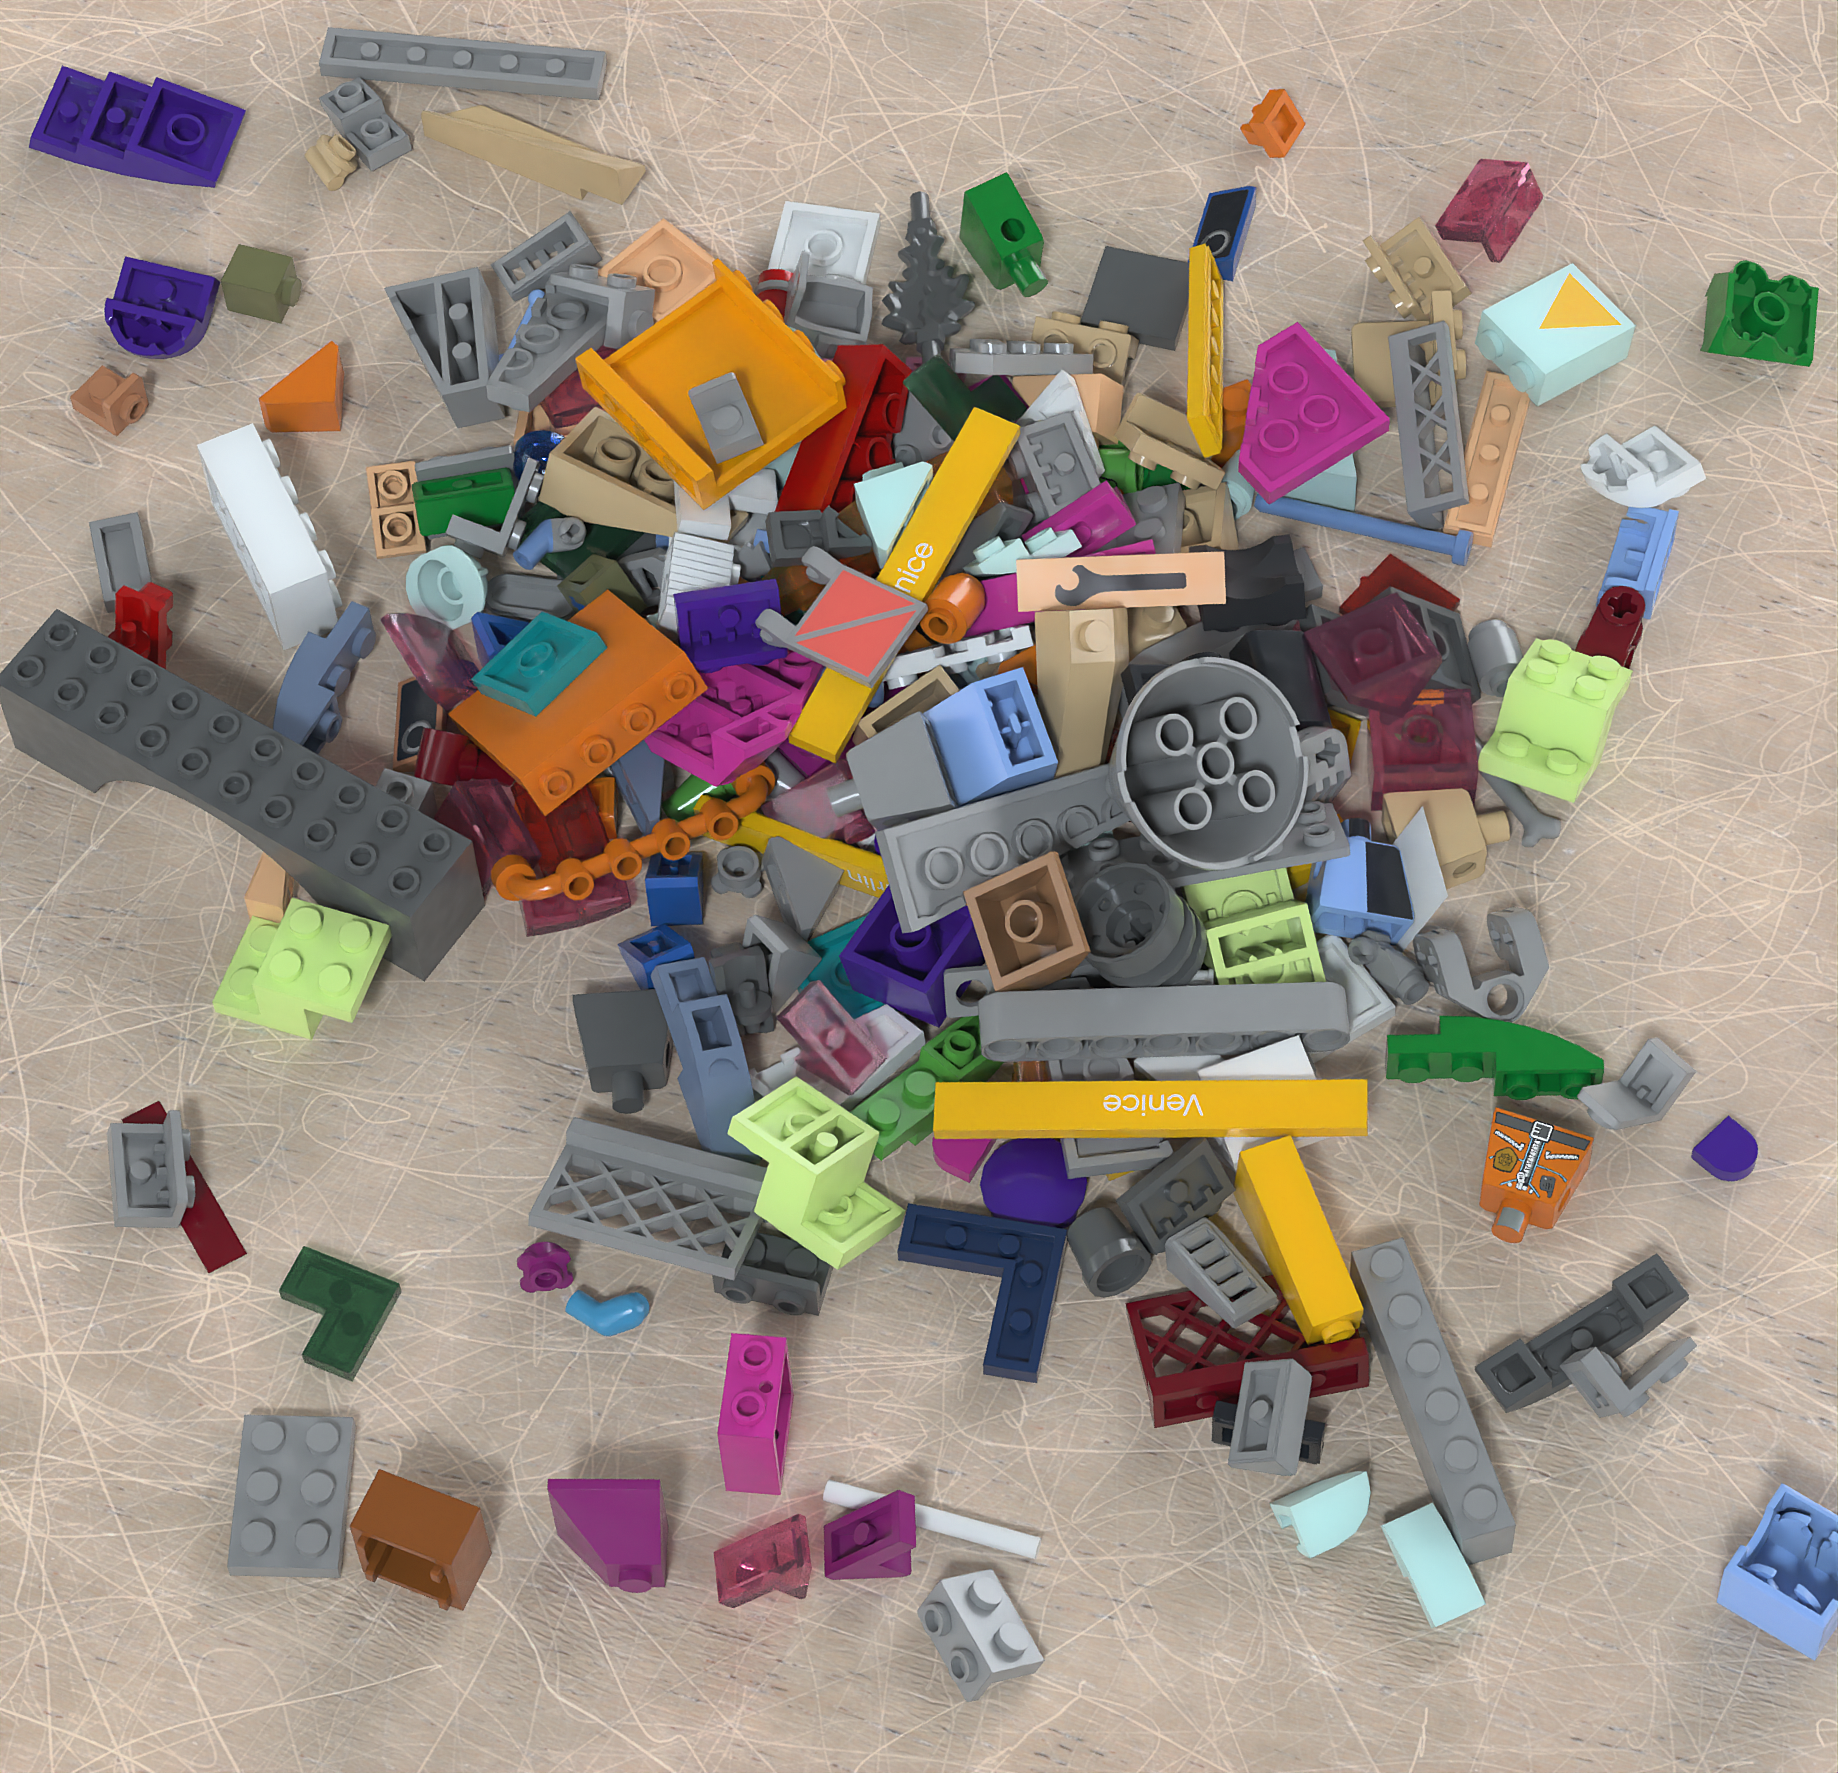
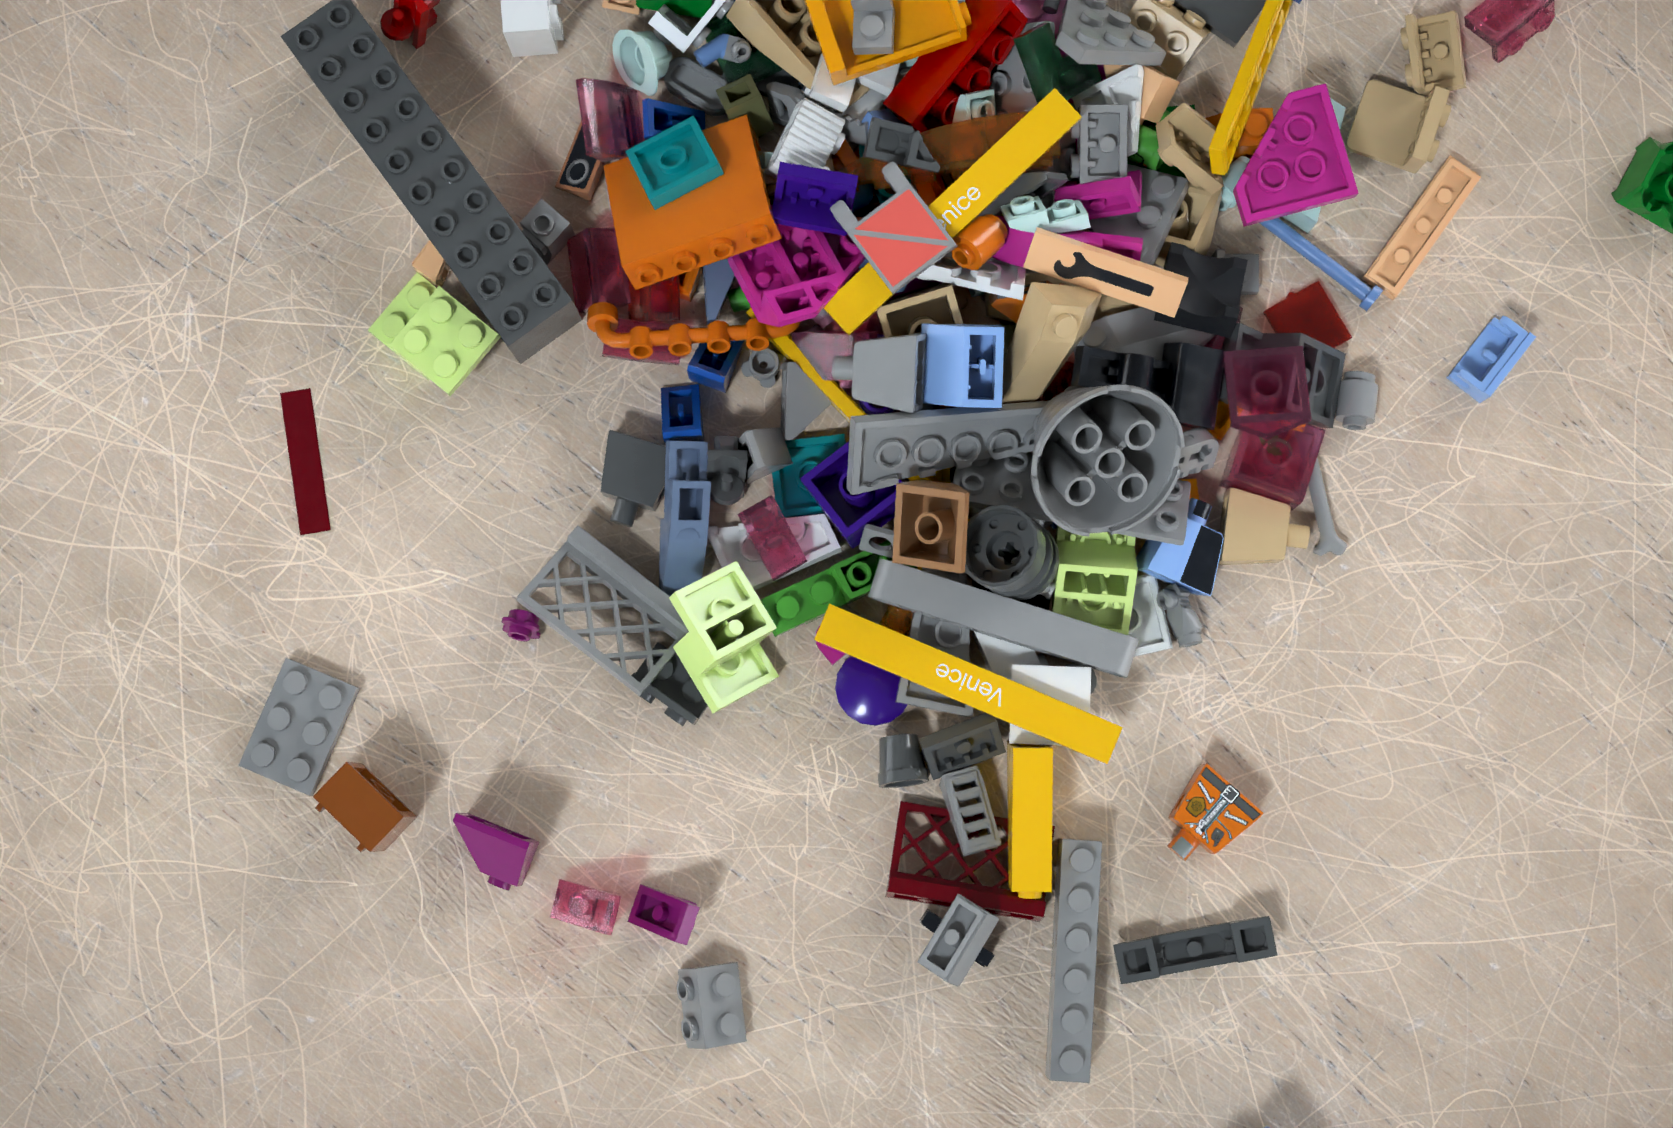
camera: 15 degrees right, 25 degrees up
(150, 1173) = (280, 450): light grey bracket -> none
(319, 674) = (506, 119): sand blue slope -> none
(352, 1308) = (386, 602): clear green tile -> none
(451, 758) = (587, 205): dark red pin -> none
(611, 1315) = (554, 677): dark azure arm -> none
(753, 1410) = (606, 816): dark pink window -> none
(889, 503) = (962, 148): light aqua slope -> none
(942, 1521) = (712, 908): white bar -> none
(1018, 1252) = (846, 743): dark blue plate -> none
(1325, 1511) = (972, 1006): light aqua brick -> none
(1417, 422) = (1379, 191): light grey fence -> none
(1422, 874) = (1230, 567): white sticker -> none
(1433, 1565) = (1026, 1075): light aqua slope -> none
(1514, 939) = (1228, 662): light grey piece -> none
(1515, 1056) = (1237, 724): green slope -> none
(1554, 334) = (1511, 147): light aqua brick -> none
(1554, 719) = (1375, 473): yellowish green bracket -> none
(1600, 1380) = (1210, 1001): light grey bracket -> none
(1615, 626) = (1440, 419): dark red piece -> none
(1642, 469) = (1524, 288): white slope -> none
(1642, 1092) = (1308, 784): light grey bracket -> none
(1727, 1151) = (1353, 844): dark purple tile -> none

